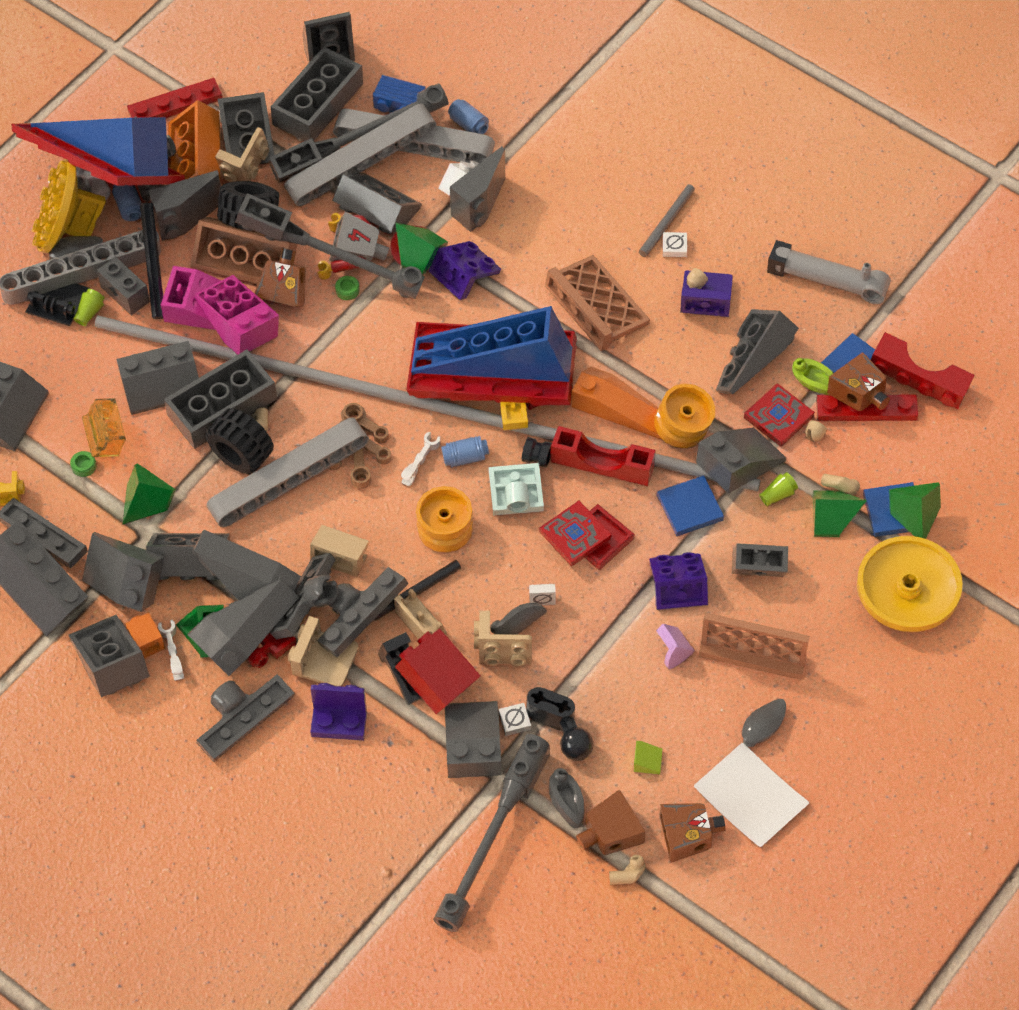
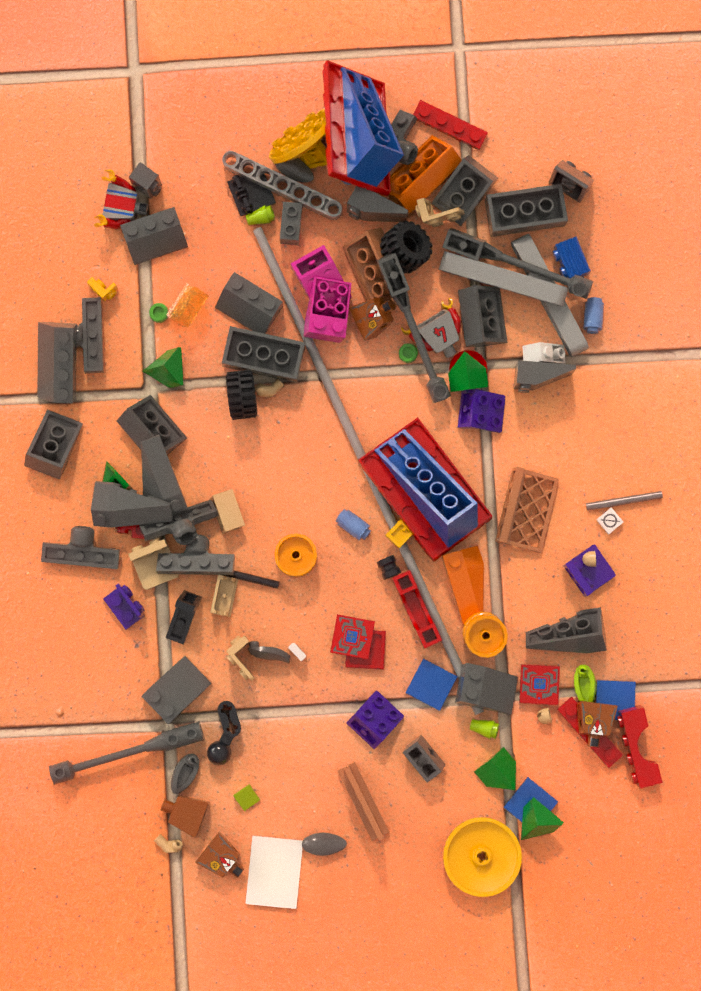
camera: 45 degrees right, 25 degrees up
(122, 571) = (104, 407): dark grey slope -> none
(145, 634) = (81, 453): orange brick -> none
(152, 259) = (320, 225): black axle -> none
(176, 666) = (78, 488): white piece -> none
(287, 472) = (250, 437): light grey beam -> none
(360, 470) = (307, 455): medium nougat plant -> none
(410, 472) = (309, 506): white piece -> none
(436, 670) = (194, 639): red brick -> none
(514, 719) = (208, 703): white tile -> none
(516, 489) = (354, 576): light aqua plate -> none
(678, 646) = (330, 753): lavender tile -> none
(841, 483) = (522, 767): tan arm -> none
(867, 283) = (678, 661): light grey piece -> none

